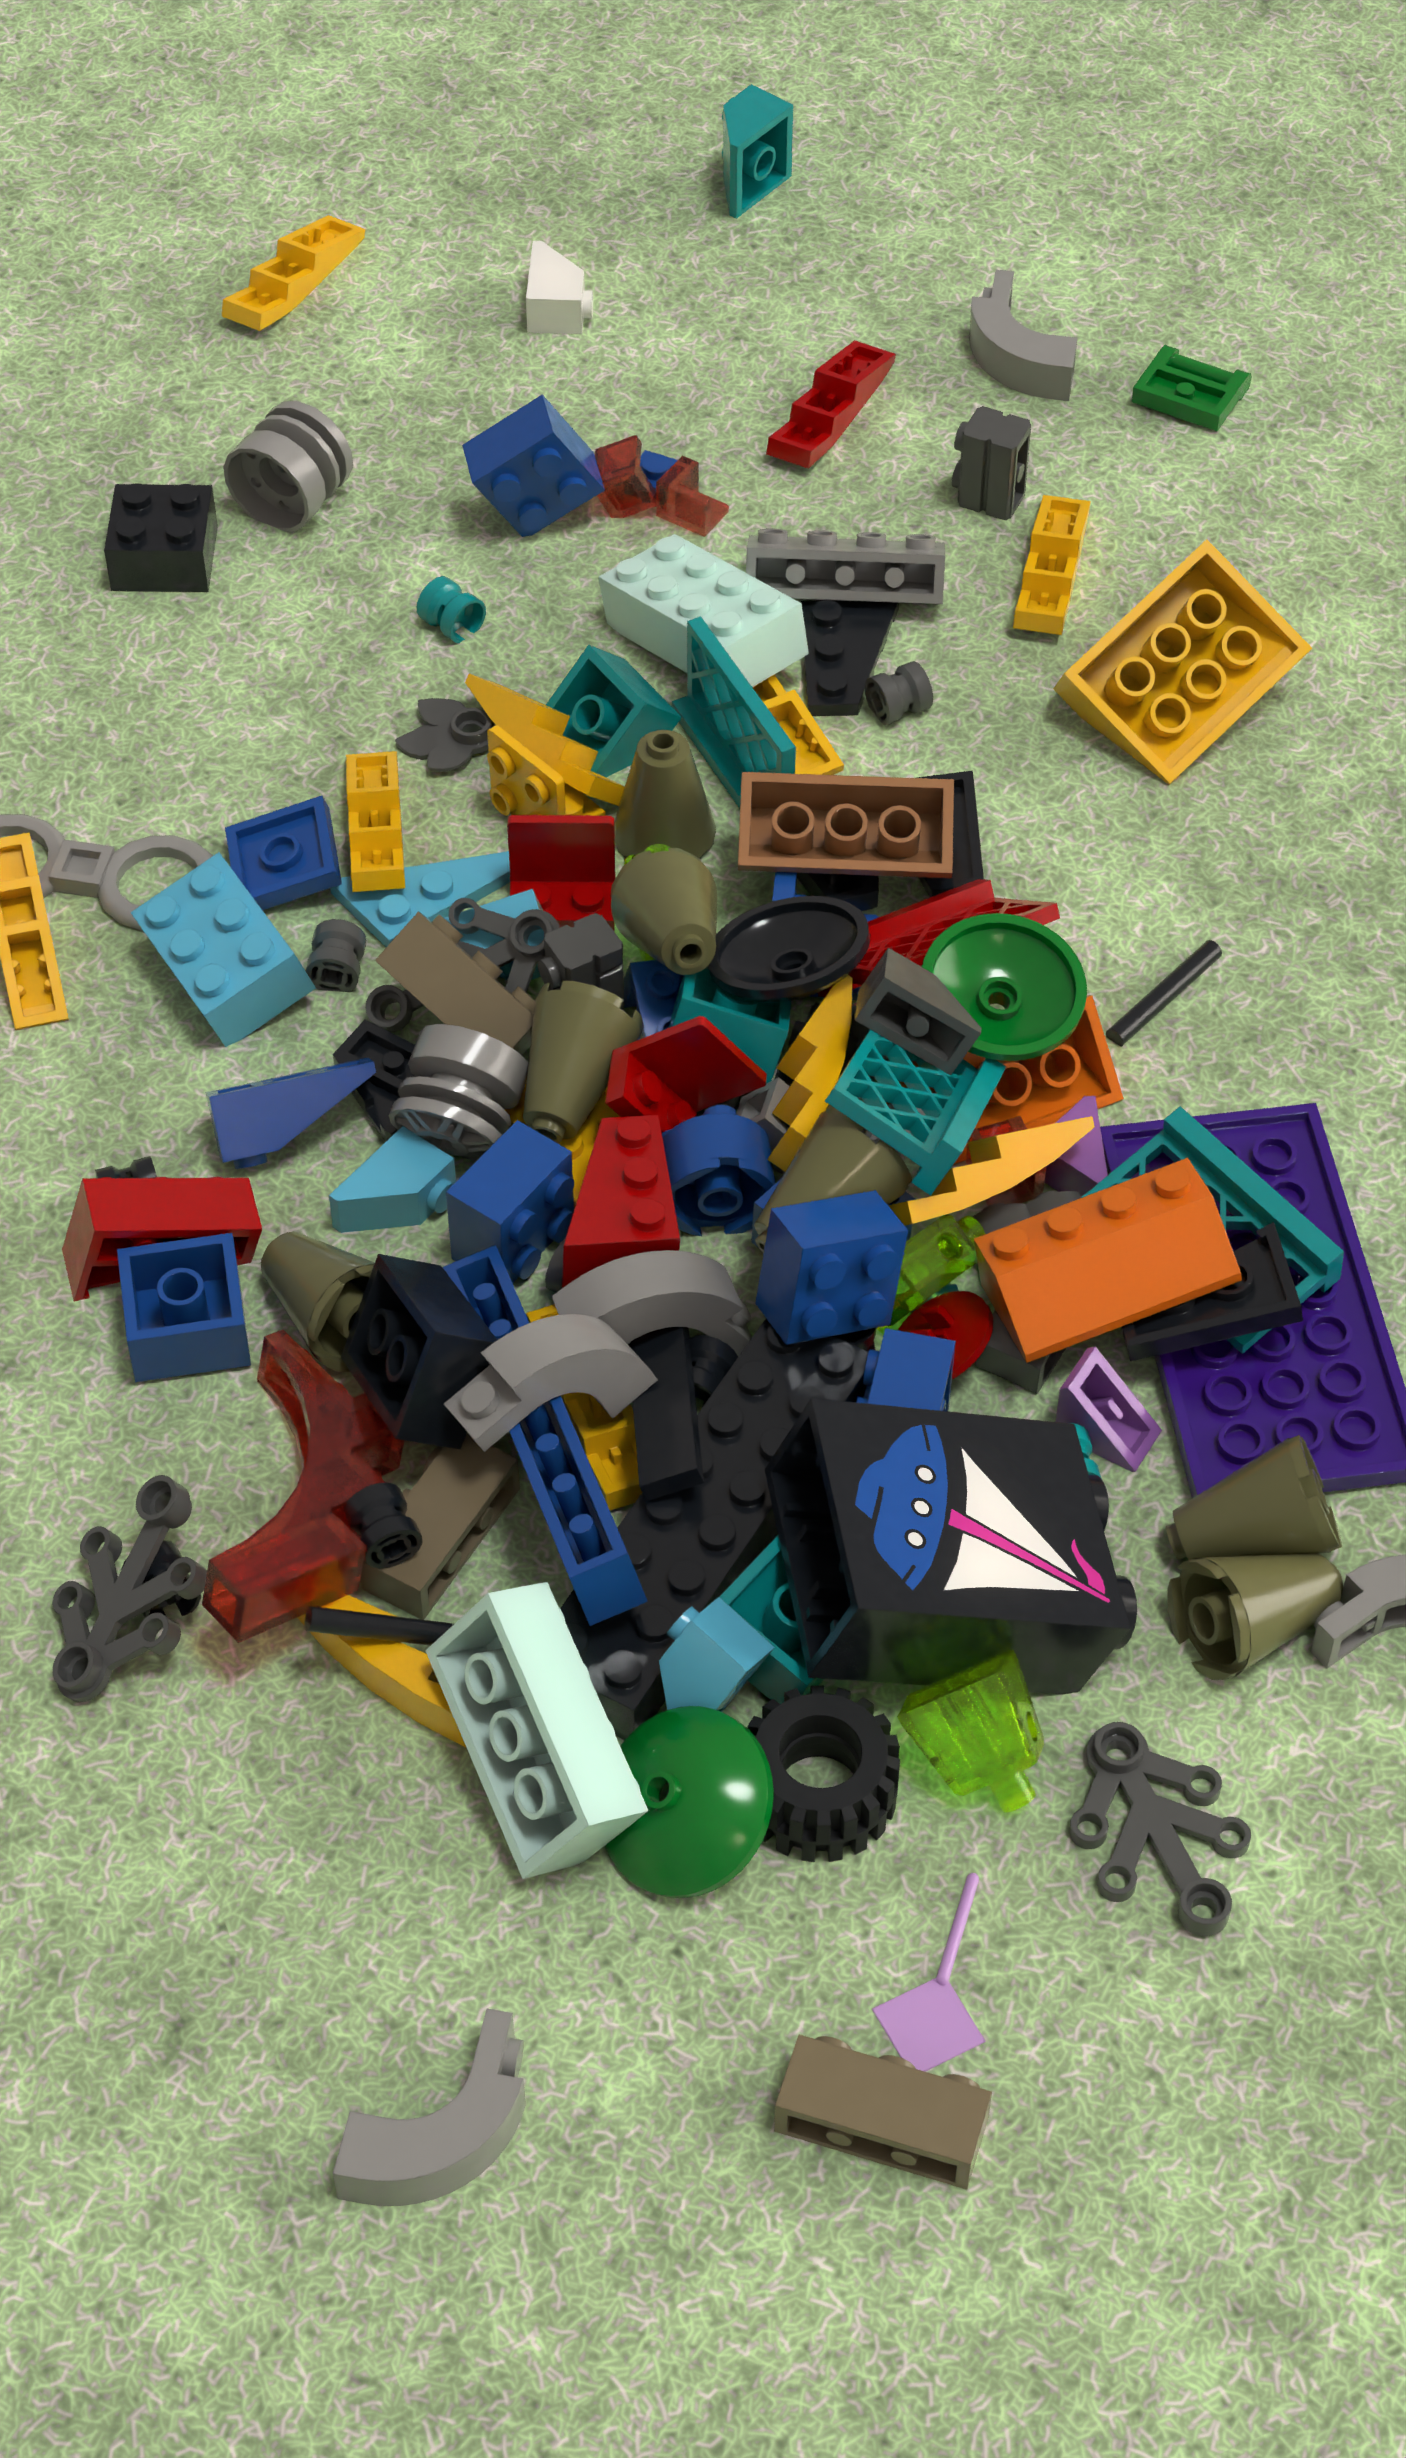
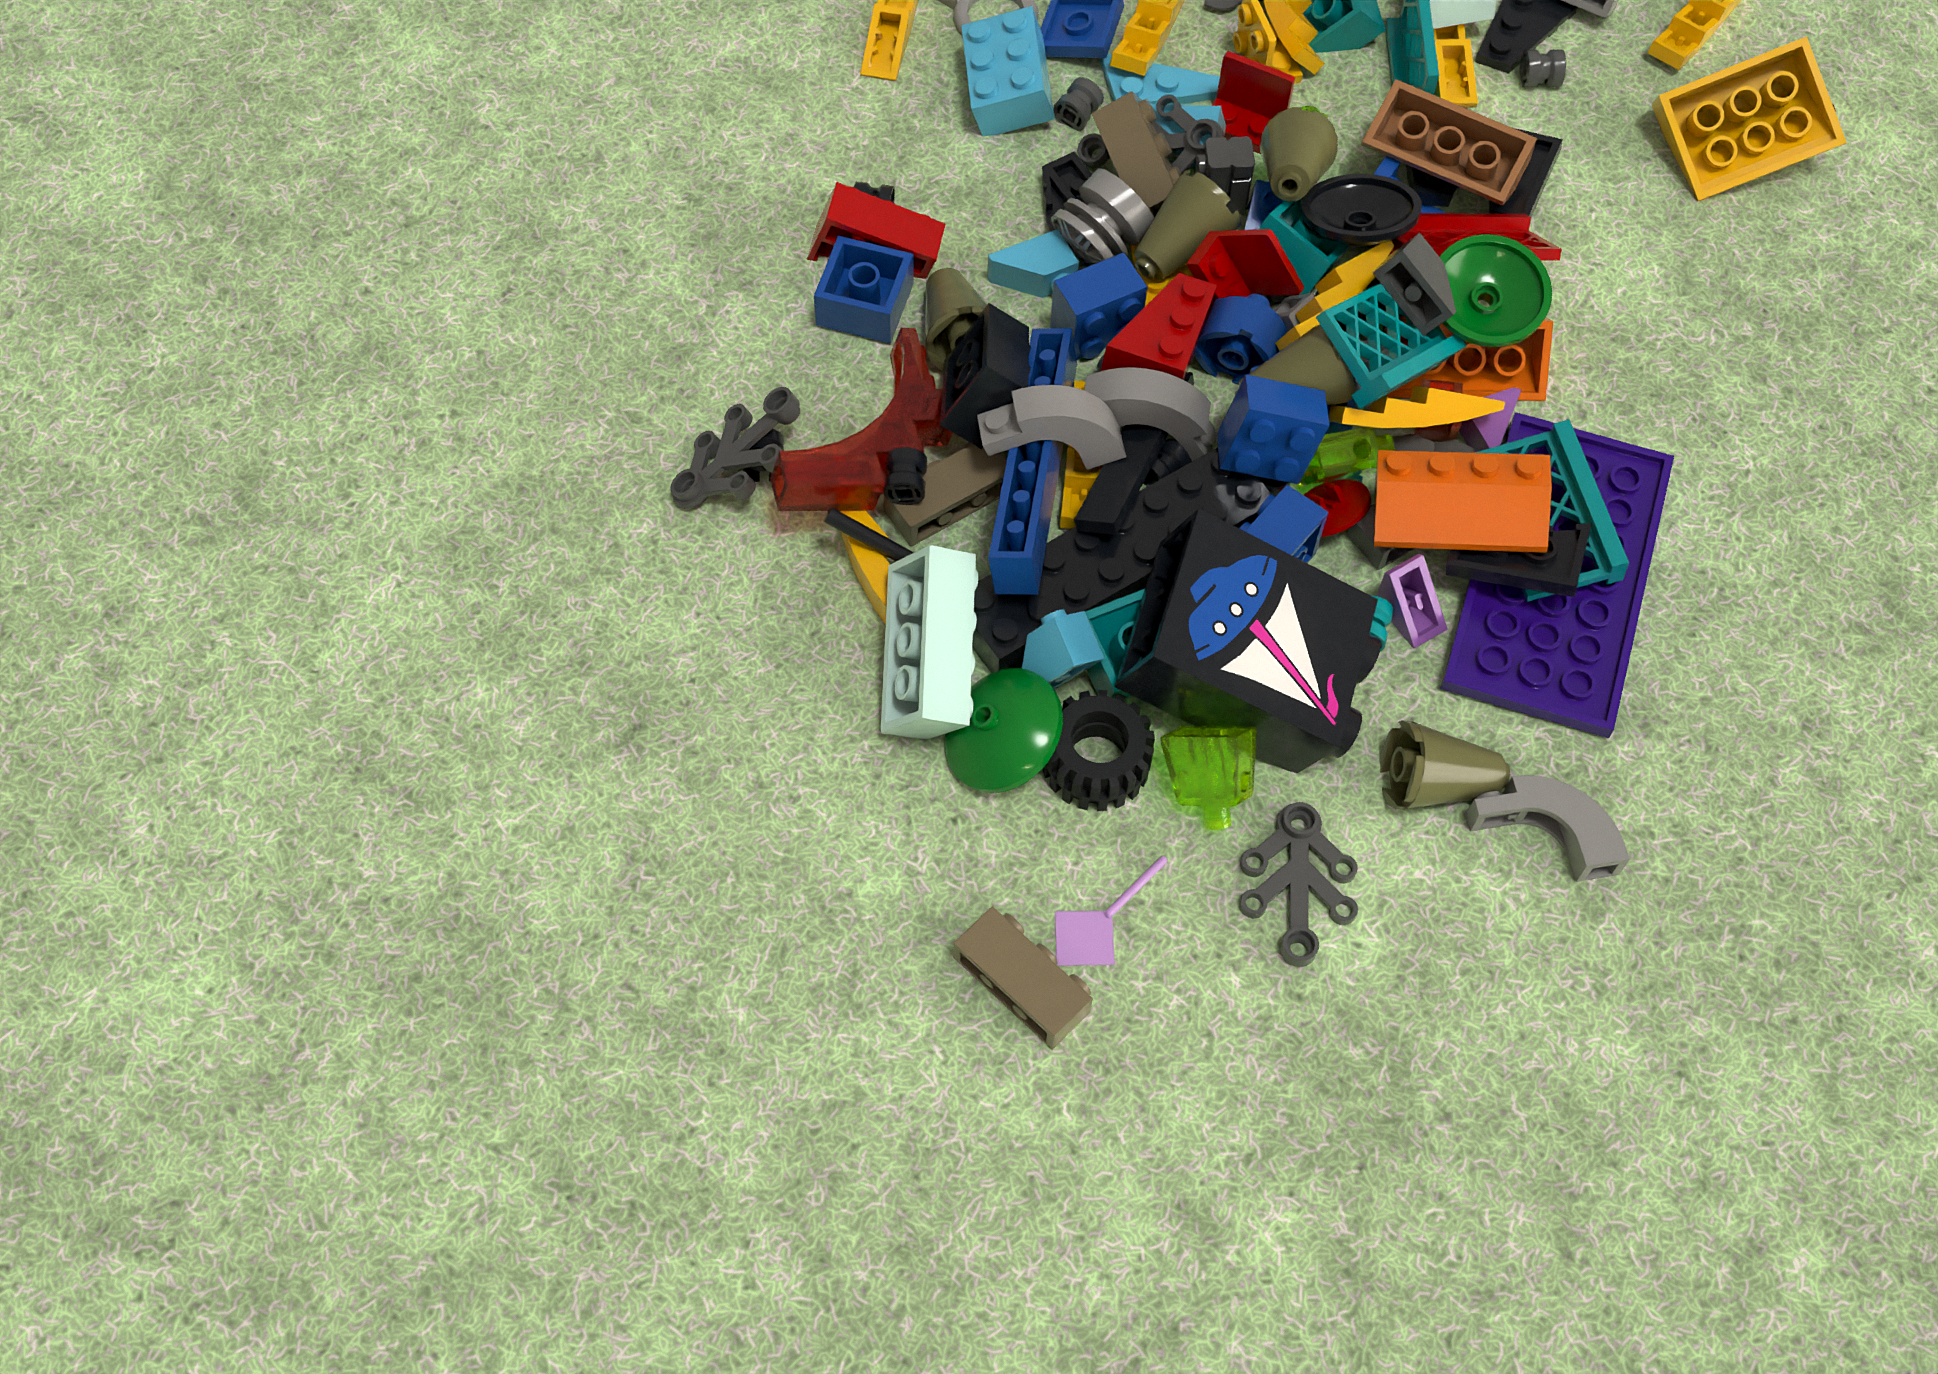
camera: 25 degrees right, 10 degrees up
(273, 1111) = (980, 187): blue slope -> none
(438, 2153) = (751, 873): light grey arch -> none
(664, 799) = (1342, 81): olive cone -> none
(1164, 993) = (1613, 340): black bar -> none
(1259, 1510) = (1478, 709): olive cone -> none

